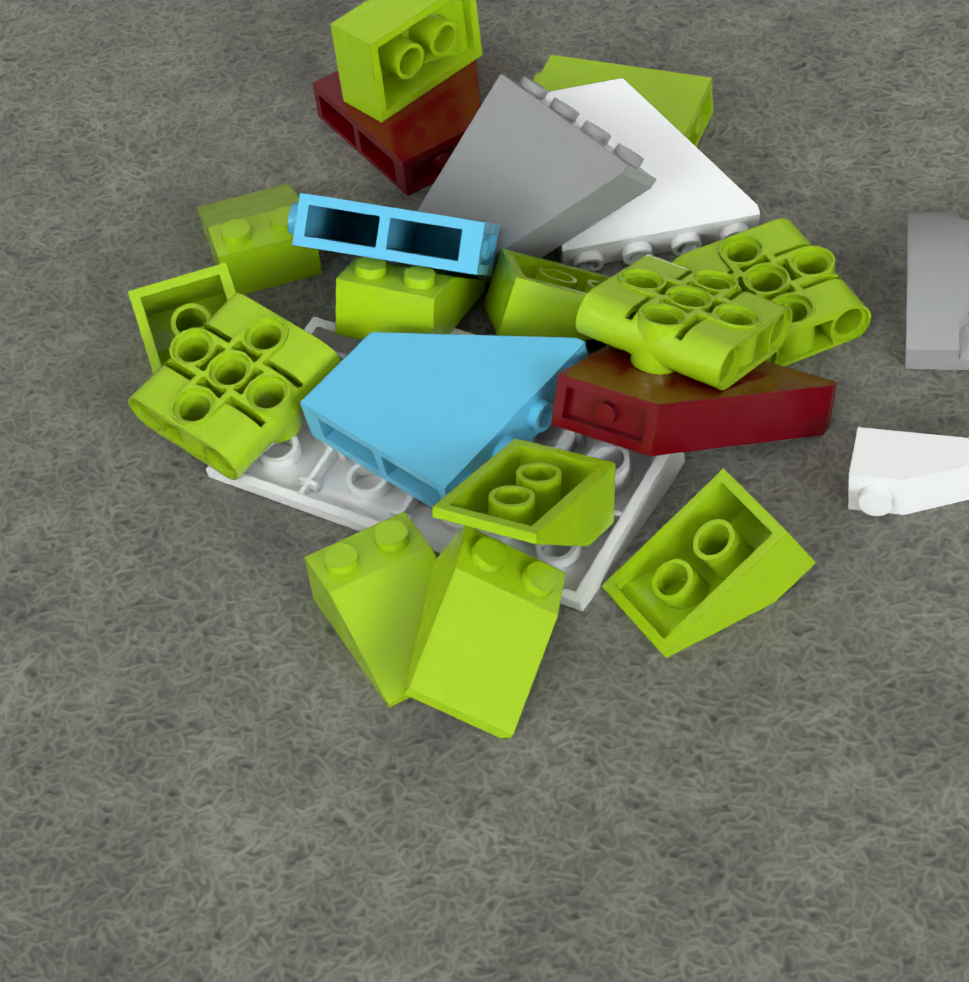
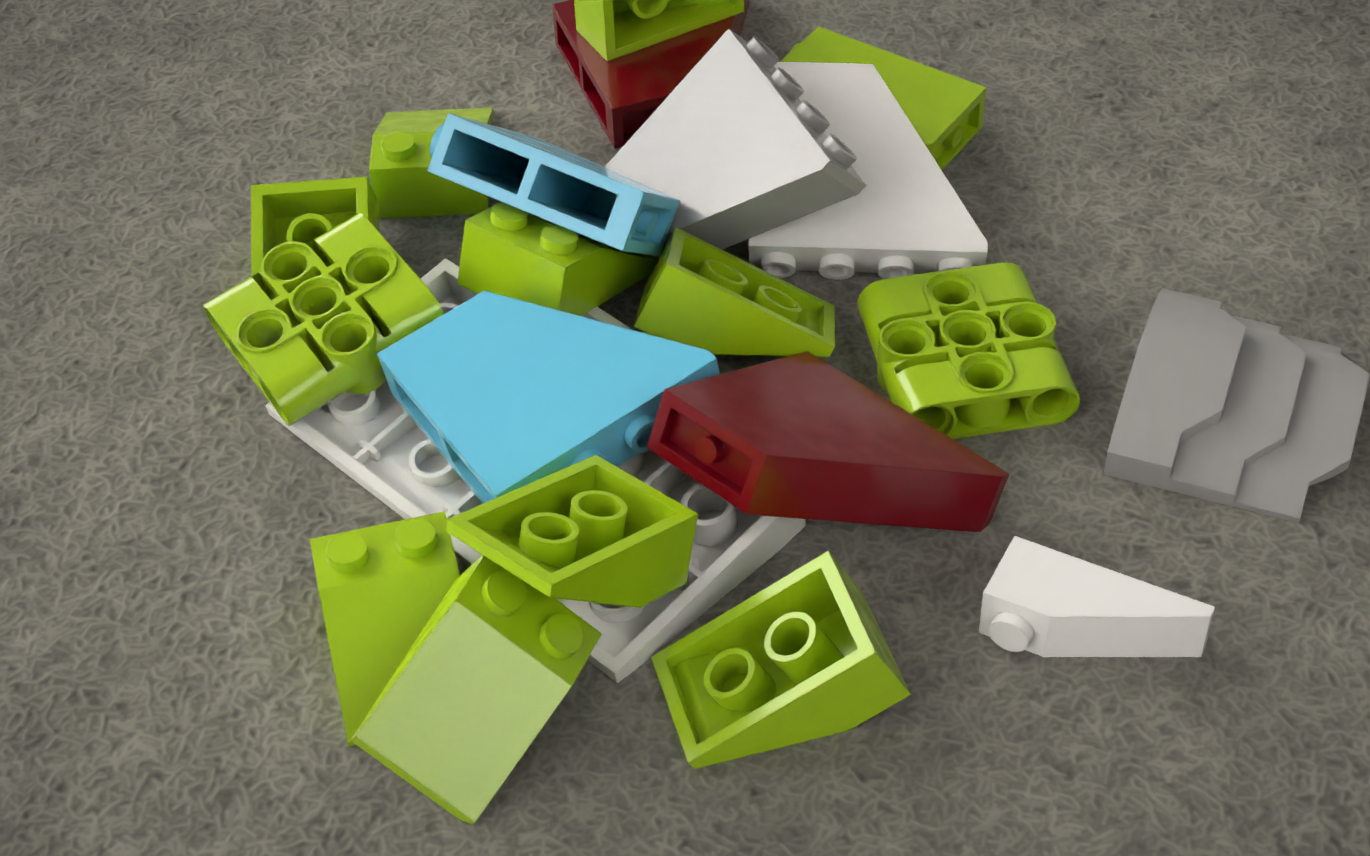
camera: 10 degrees right, 0 degrees up
(684, 321) = (843, 360): lime connector -> none

